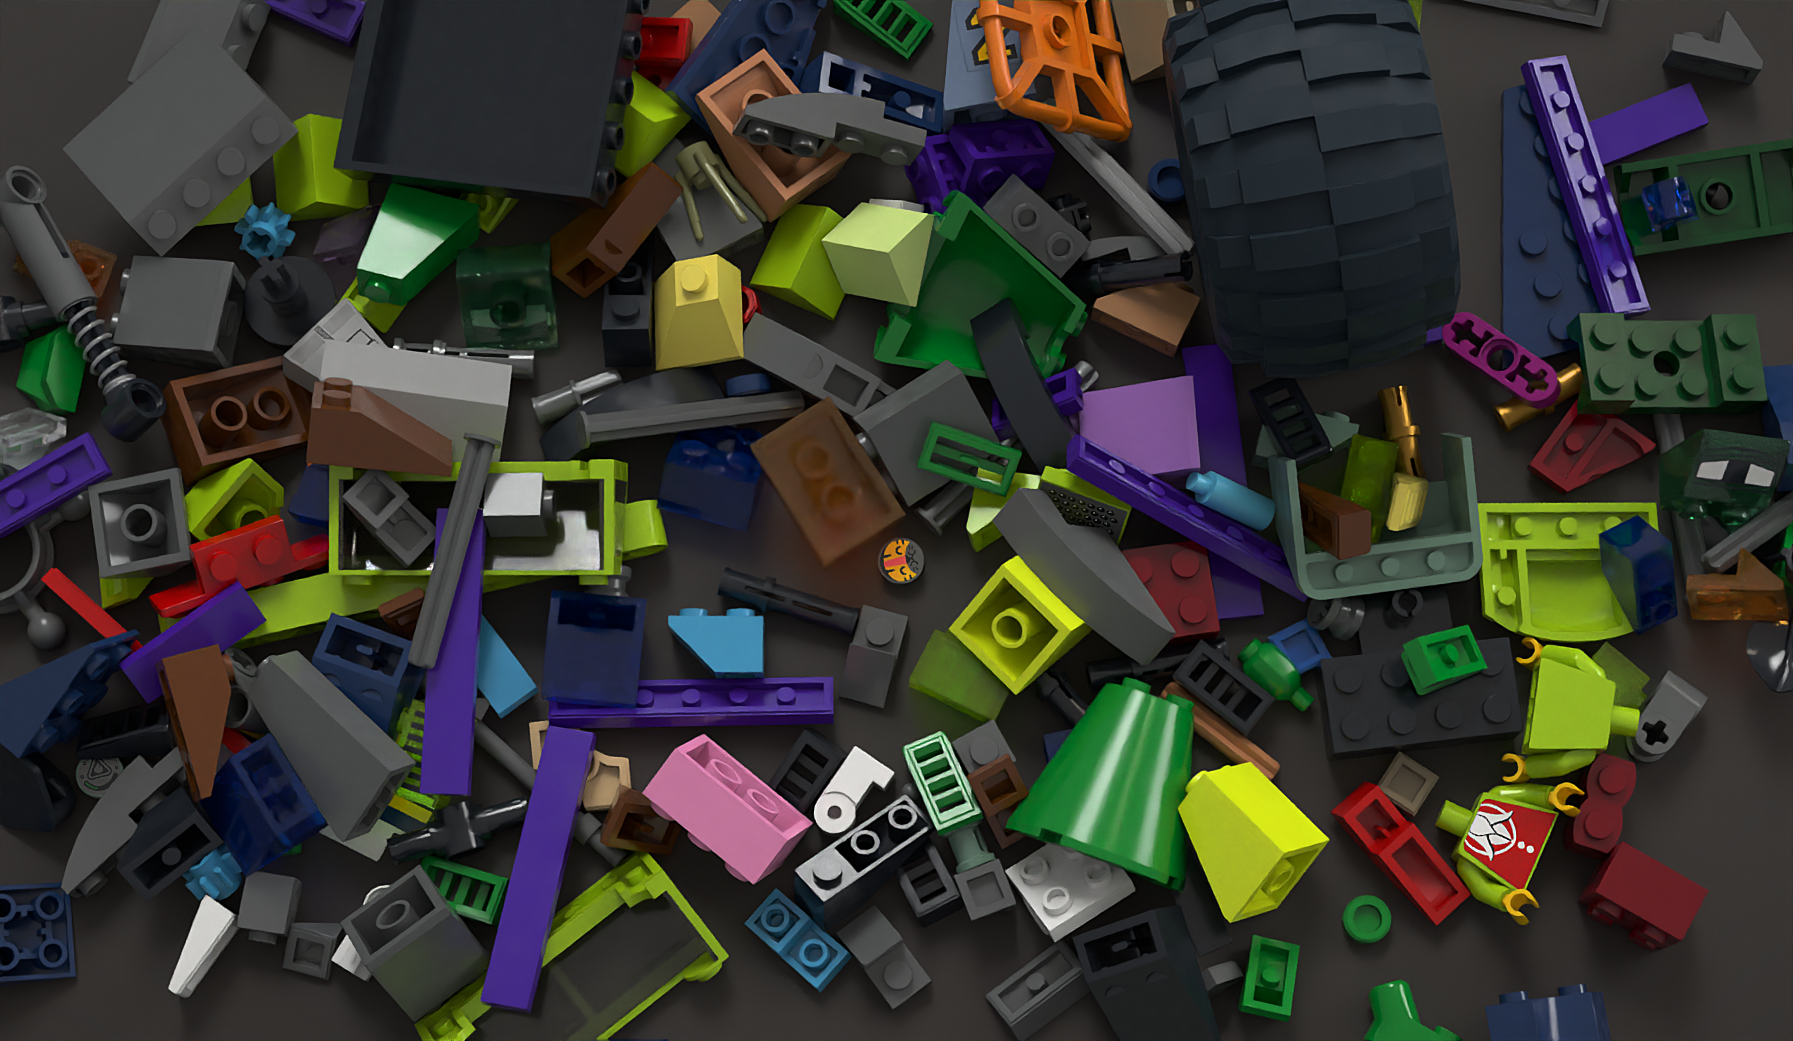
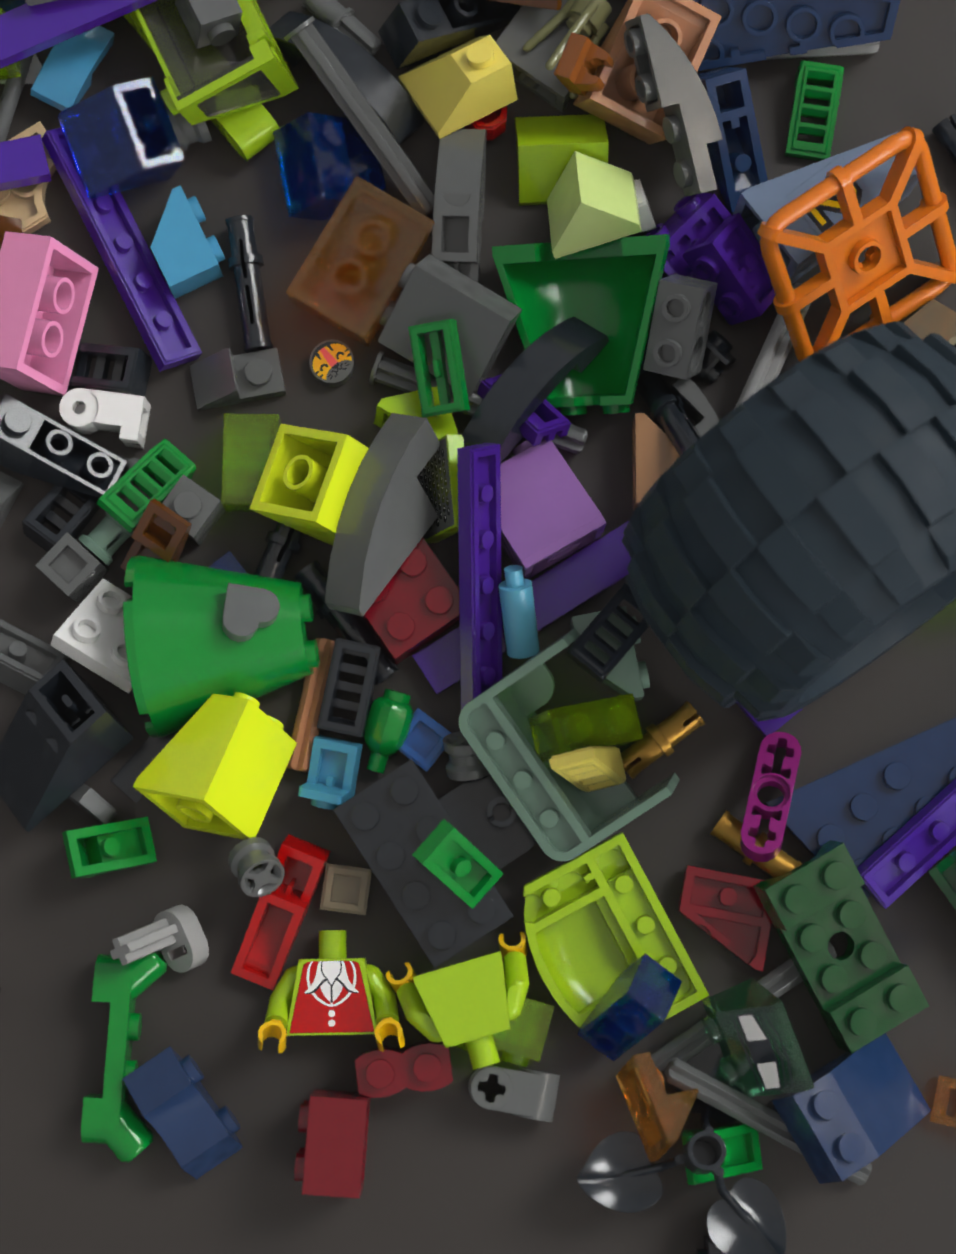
camera: 60 degrees right, 5 degrees up
(749, 194) = (579, 64): none -> dark orange tile
(749, 385) = (420, 158): dark blue tile -> none
(1121, 735) = (247, 610): none -> dark grey tile
(1293, 743) = (331, 772): none -> dark azure bracket
(1337, 523) = (534, 708): reddish brown slope -> none
(1355, 847) = (256, 867): none -> dark grey wheel
(1366, 919) = (212, 908): green tile -> none
(1373, 961) = (167, 933): none -> light grey piece

